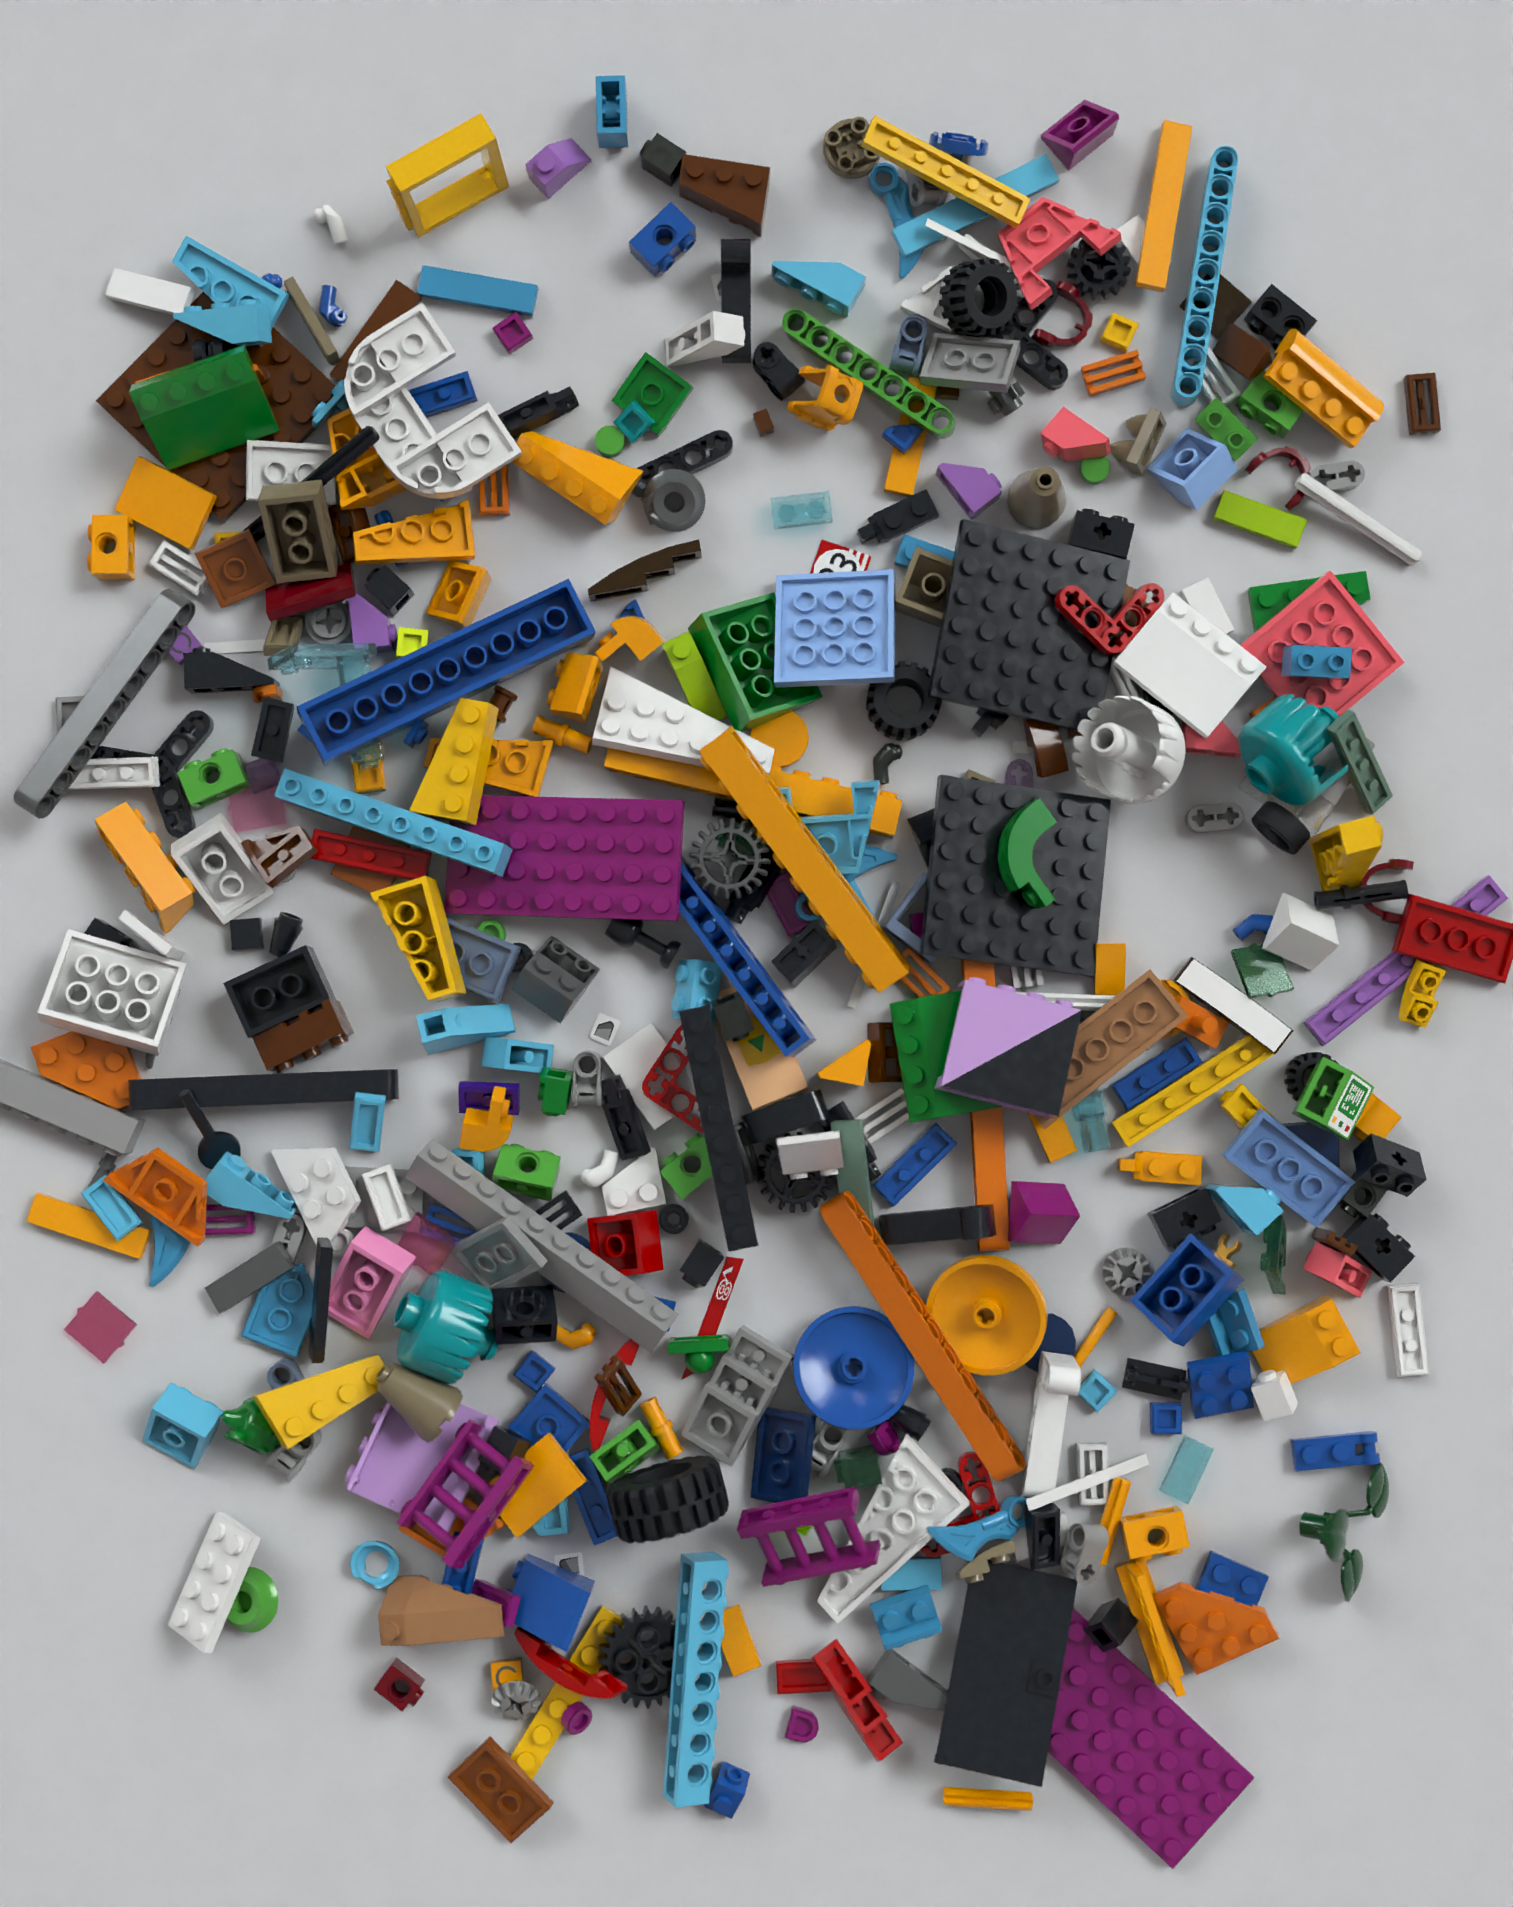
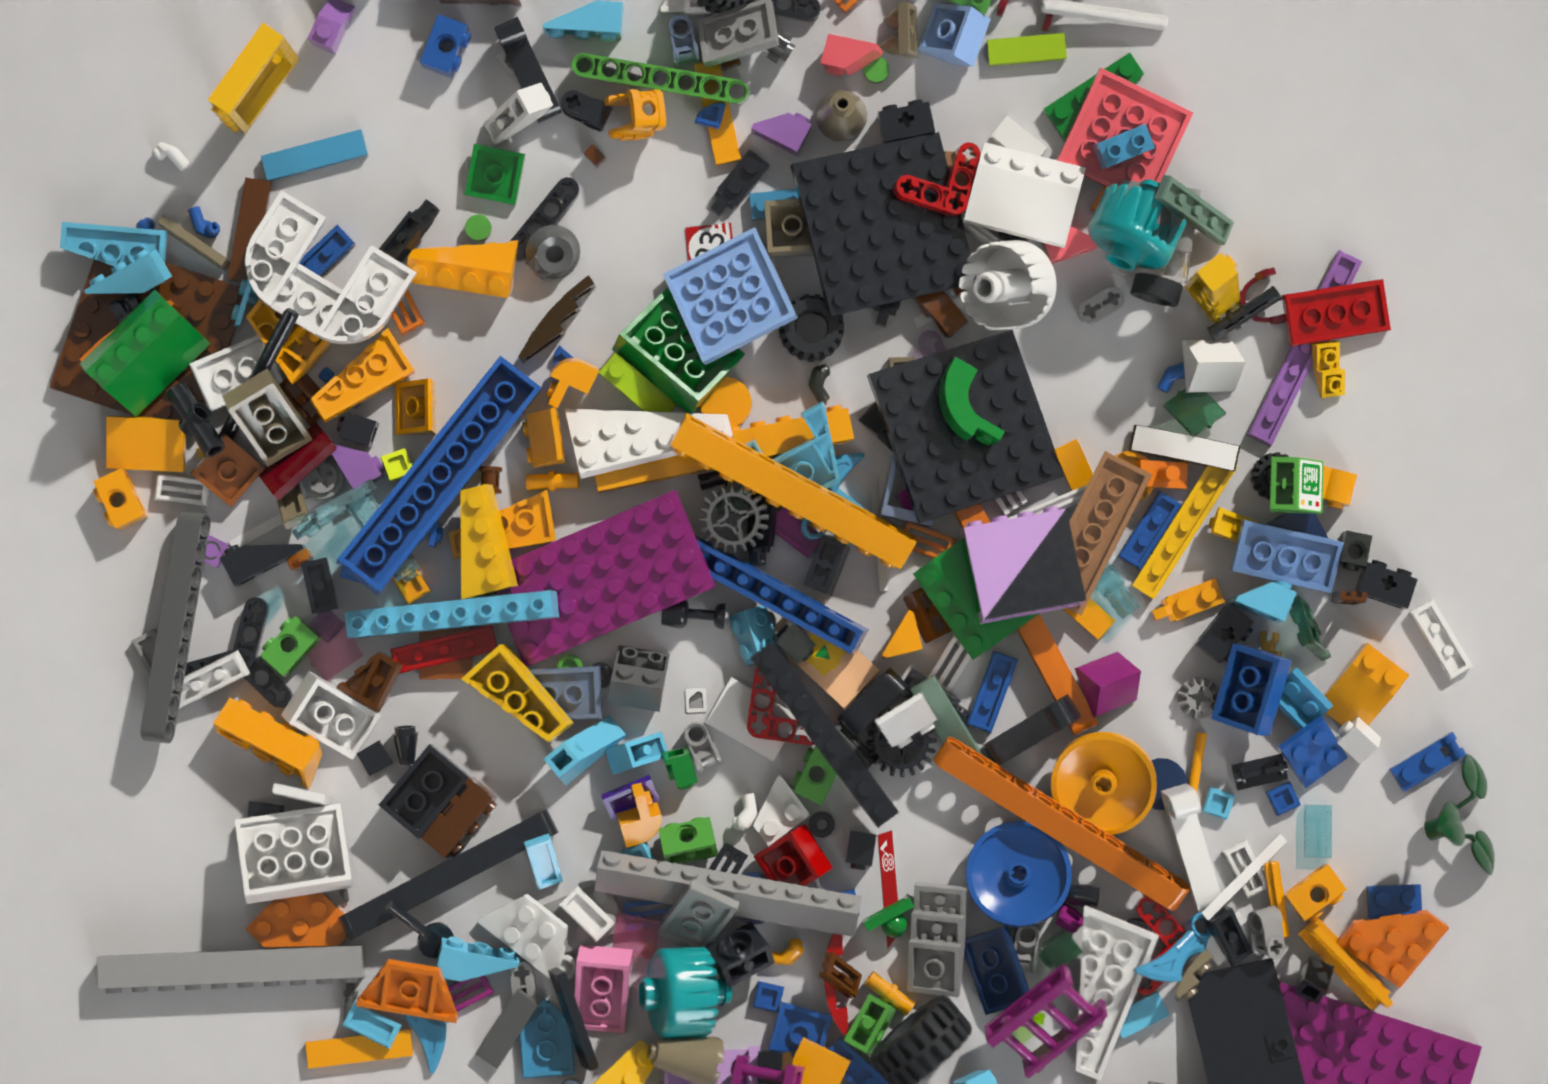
camera: 25 degrees left, 0 degrees up
(148, 292) = (51, 280): white tile -> none
(224, 499) = (195, 420): none -> black piece
(512, 333) = (358, 176): magenta tile -> none
(624, 1119) = (745, 764): black hinge -> none
(634, 422) = (491, 204): teal tile -> none
(801, 510) = (658, 212): clear light blue plate -> none
(906, 1617) = (1151, 1050): dark azure bracket -> none
(1337, 1269) = (1363, 618): coral slope -> none
(1389, 1165) = (1364, 517): black brick -> none

